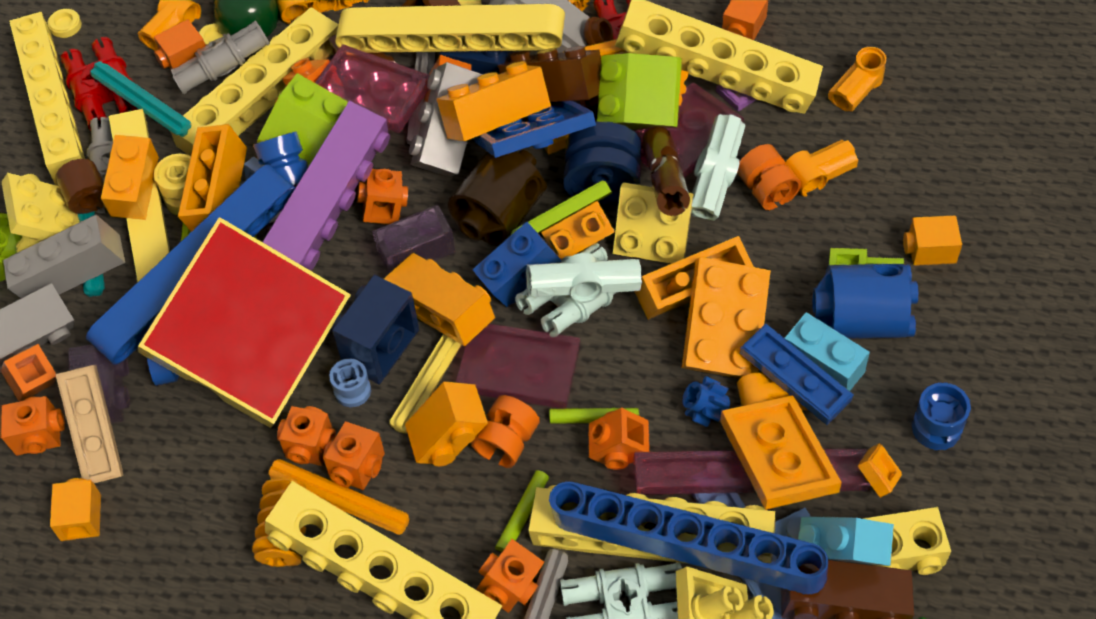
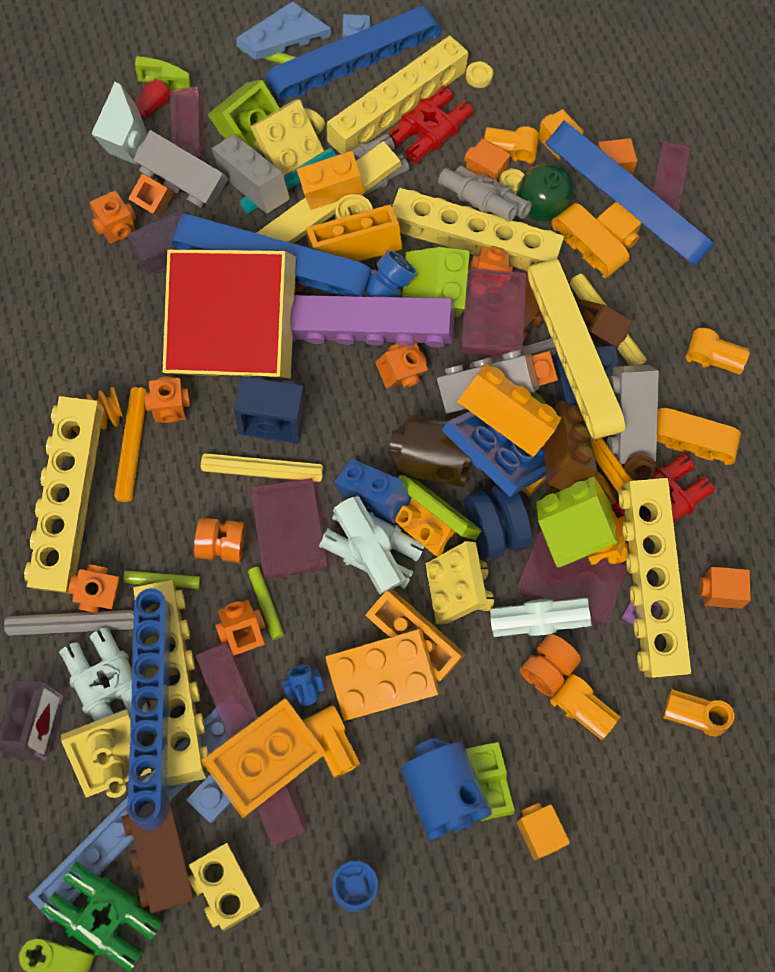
camera: 60 degrees right, 10 degrees up
(75, 509) = (60, 275): light orange brick -> none
(81, 186) = (315, 149): reddish brown piece -> none
(89, 424) = (122, 252): tan tile -> none
(141, 99) = (413, 156): teal axle -> none
(354, 391) = (224, 419): medium blue wheel -> none
(354, 456) = (159, 439): orange brick -> none
(421, 233) = (368, 406): clear purple brick -> none
(444, 298) = (318, 445): light orange brick -> none
(446, 423) = (203, 493): light orange brick -> none
(668, 179) = (497, 571): reddish brown piece -> none
(796, 374) = (346, 749): blue tile -> none
(829, 350) = (382, 769): medium azure brick -> none
(850, 539) = (196, 836): medium azure brick -> none
(880, 470) = (286, 848): light orange tile -> none

